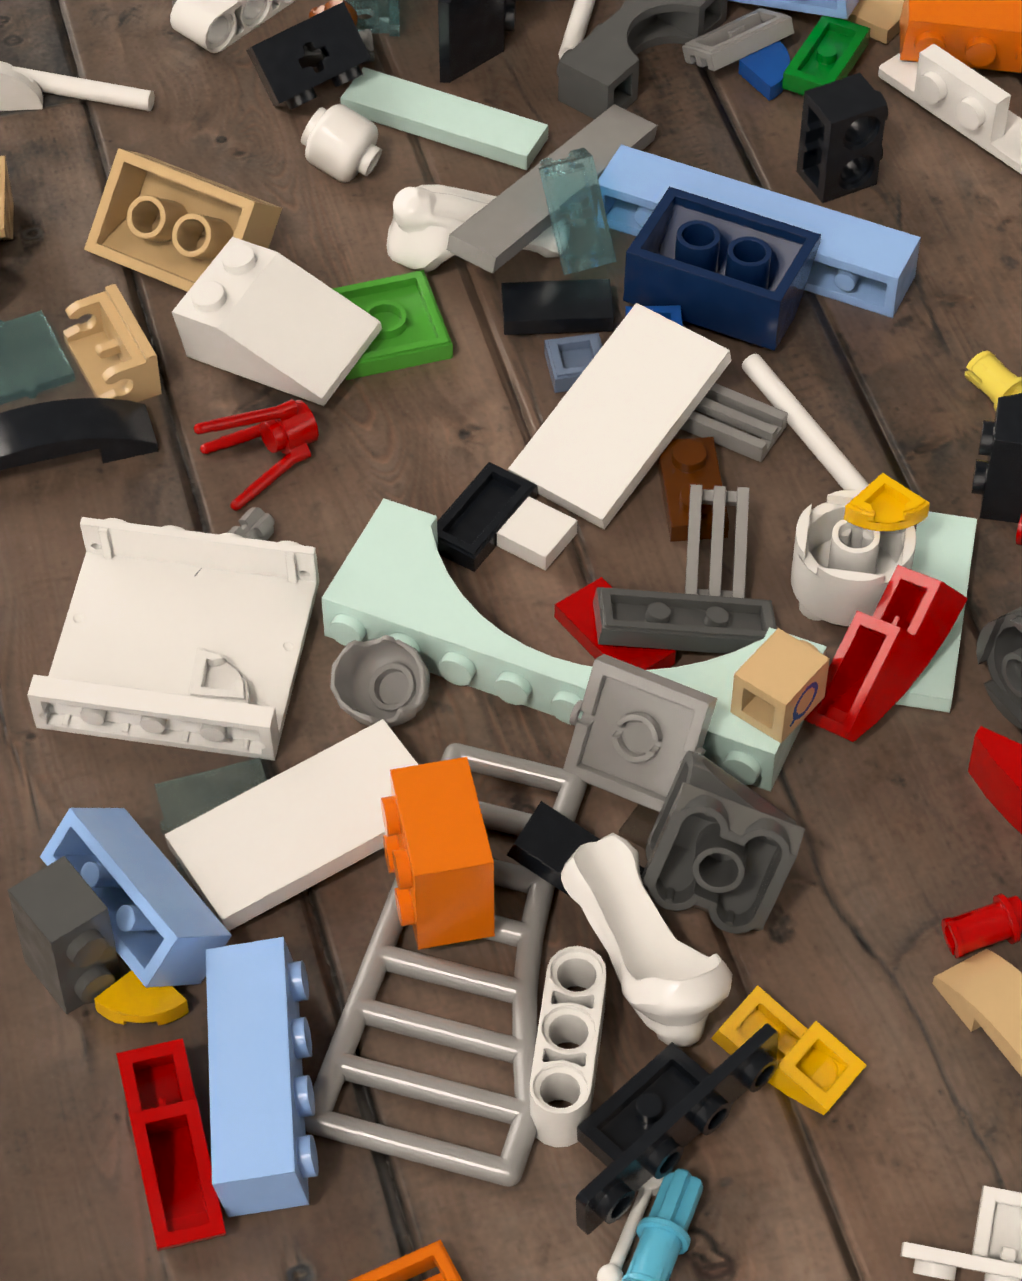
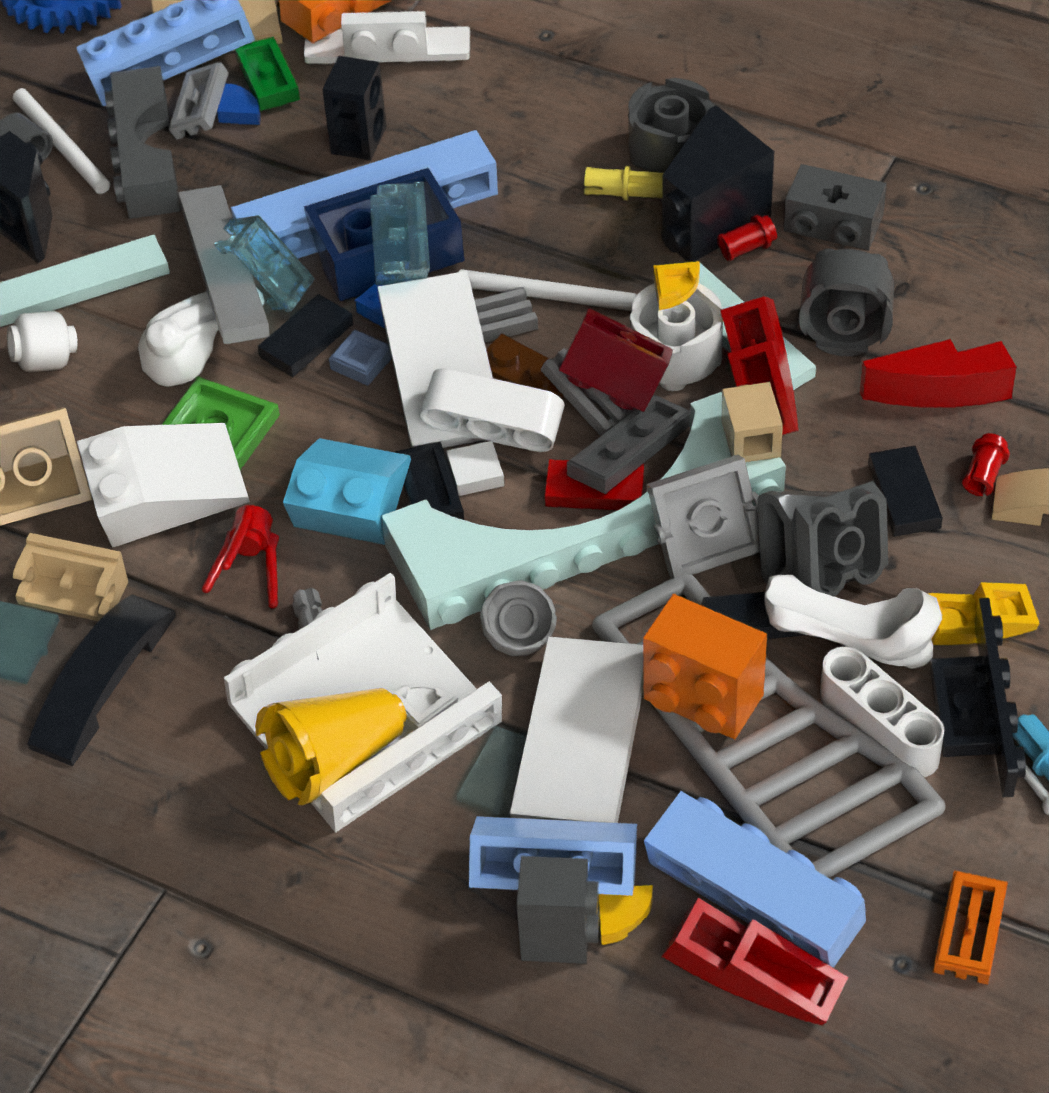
camera: 45 degrees left, 0 degrees up
(99, 636) = (326, 738): none -> yellow cone
(401, 449) = (345, 489): none -> medium azure slope
(598, 490) = (492, 410): none -> white beam
(703, 270) = (399, 233): none -> clear light blue hinge
(742, 530) = (615, 361): none -> dark red brick
(879, 882) = (907, 490): none -> black tile

